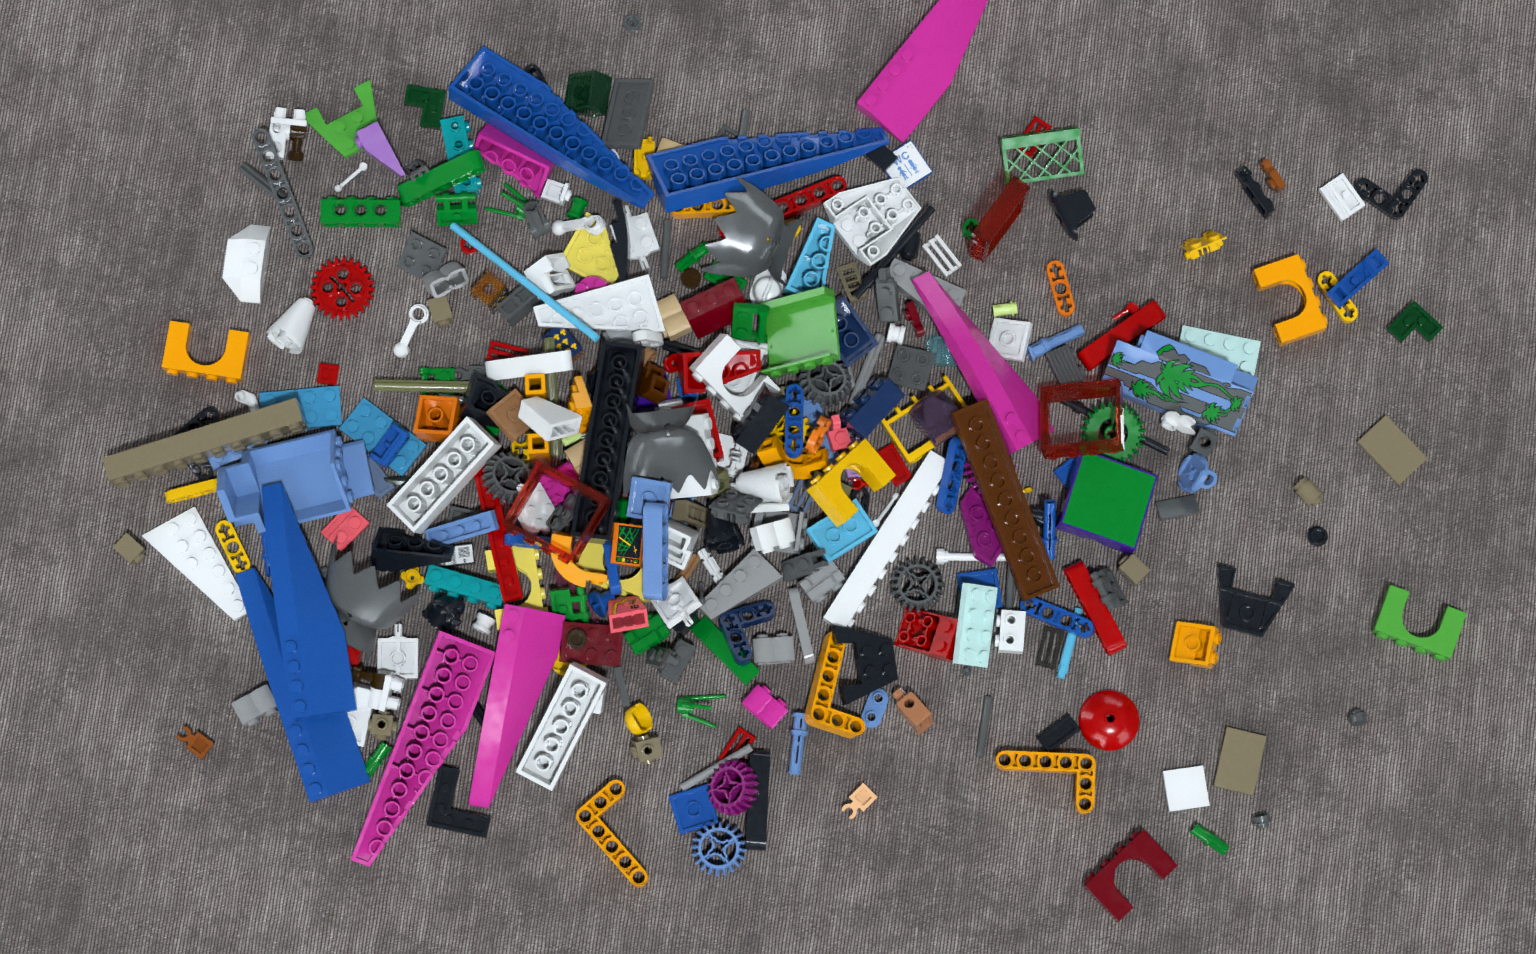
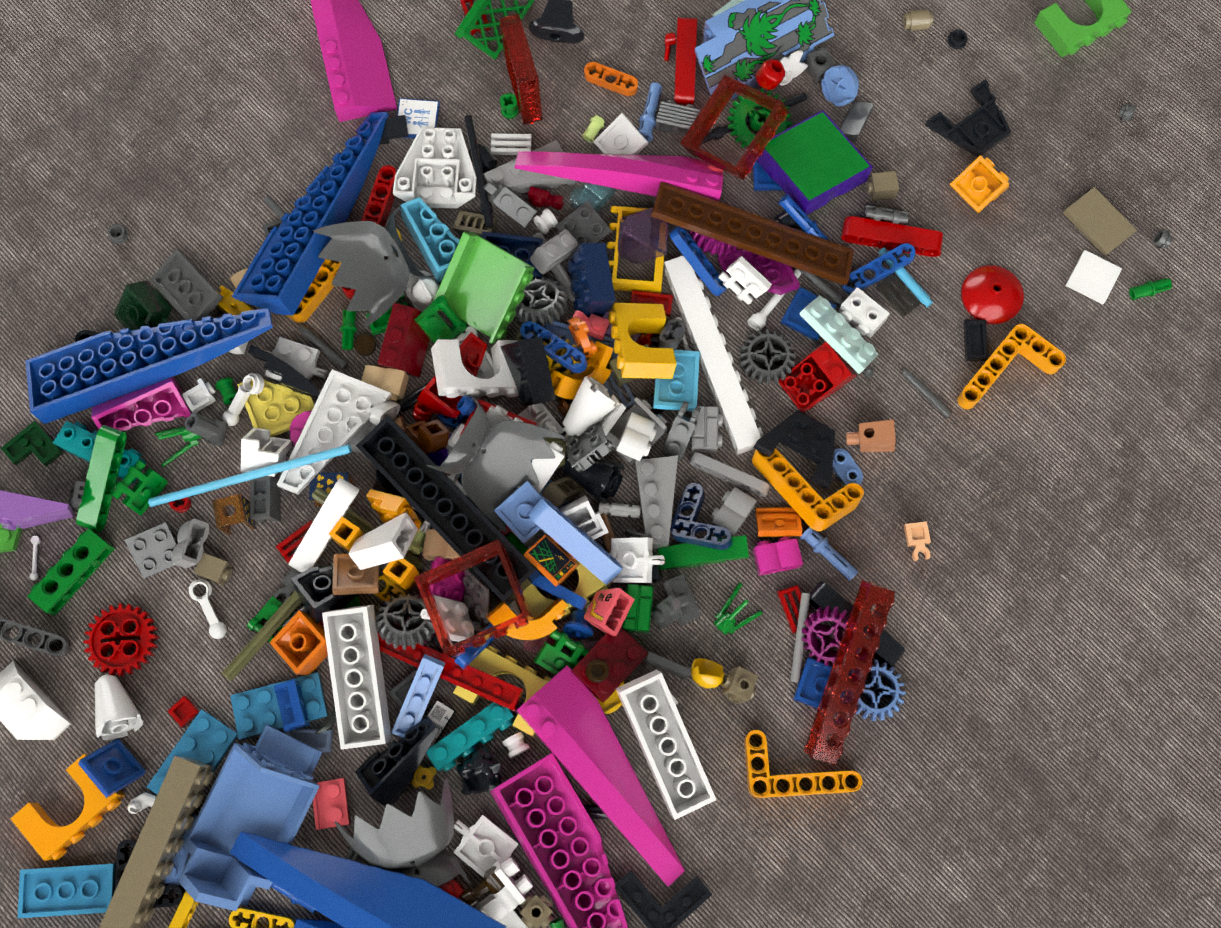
camera: 50 degrees left, 5 degrees down
(153, 398) = (66, 890): none -> dark azure plate
(254, 359) = (112, 767): none -> blue tile
(695, 390) = (466, 405): none -> blue plate
(775, 787) = (846, 659): none -> clear red brick
(791, 688) = (778, 522): none -> orange plate
(872, 361) = (554, 251): none -> light grey brick
(877, 504) = (669, 333): none -> dark grey beam
(962, 522) = (748, 277): none -> white plate
(1102, 884) = (1131, 395): dark red arch -> none
(1154, 412) = (770, 74): none -> red head

